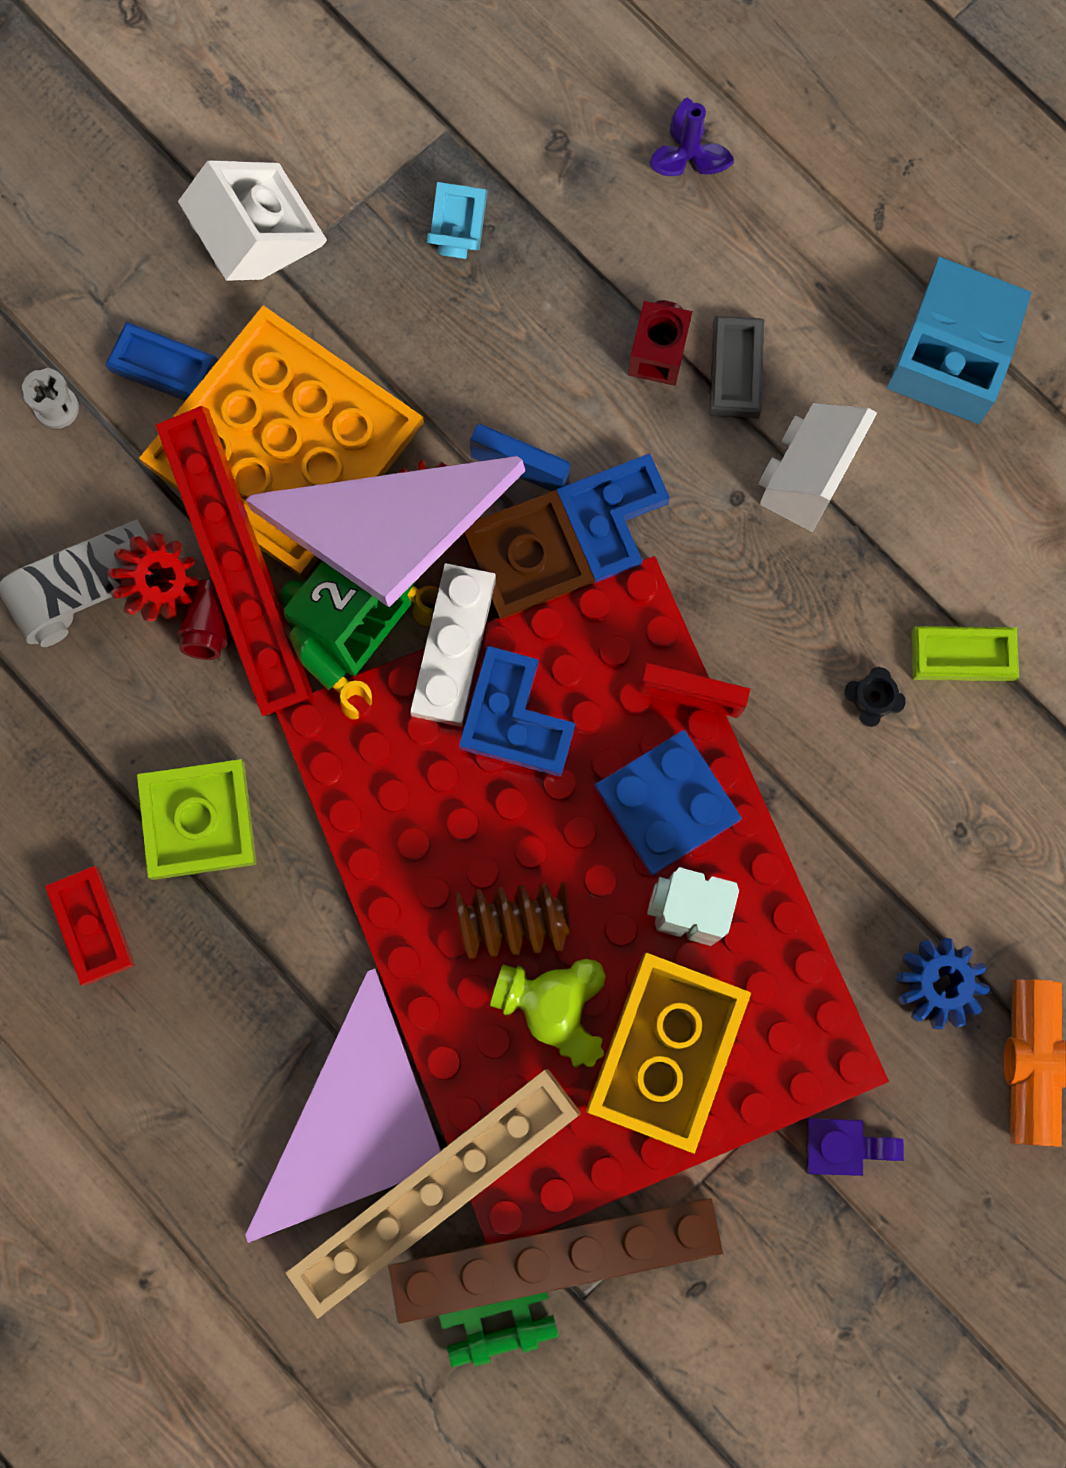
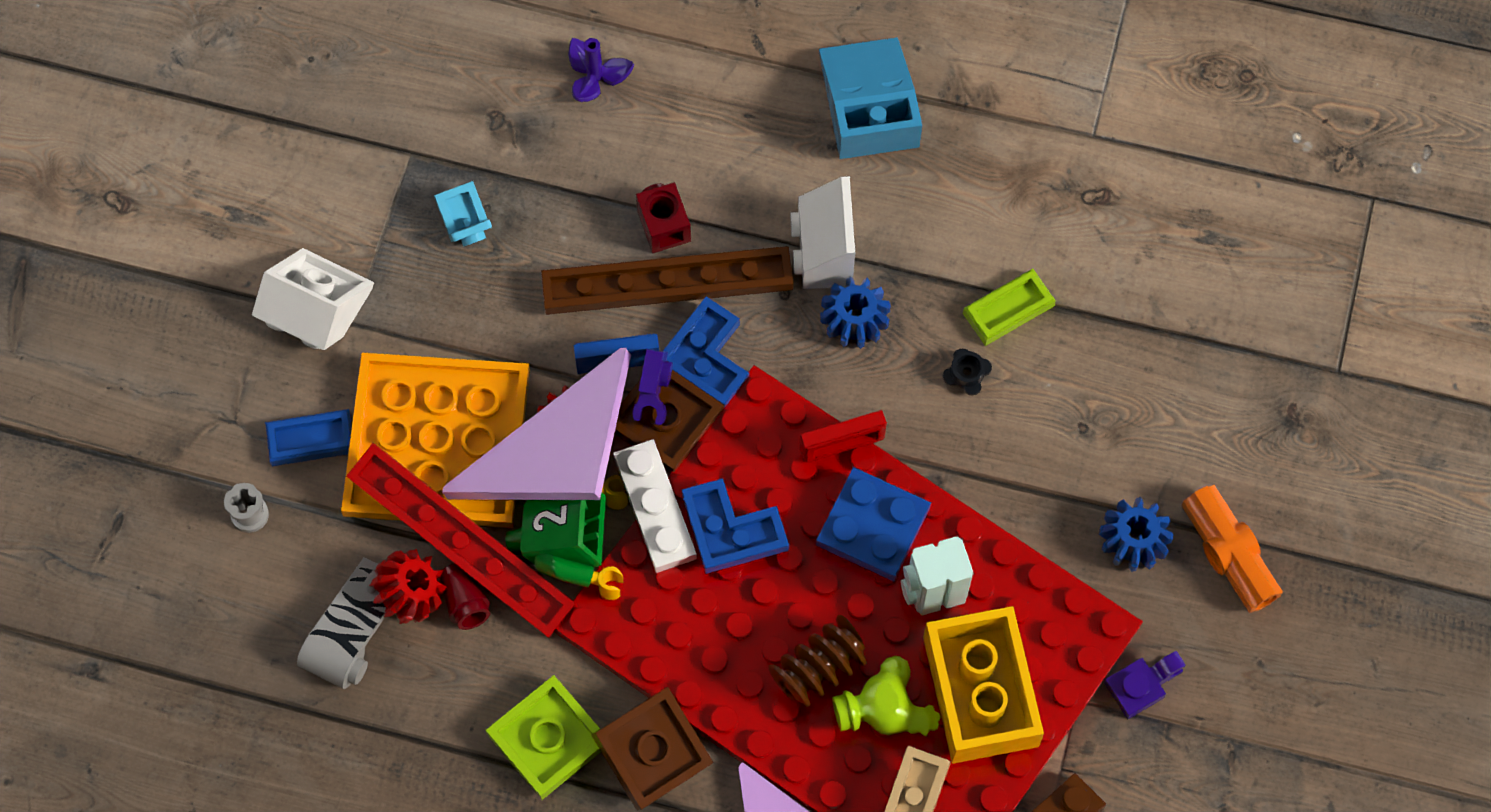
camera: 30 degrees left, 10 degrees down
(289, 899) = (652, 748): none -> reddish brown plate
(536, 507) = (654, 375): none -> dark purple plate
(622, 412) = (667, 280): none -> reddish brown plate
(737, 367) = (726, 203): dark grey tile -> none
(815, 569) = (871, 312): none -> blue gear

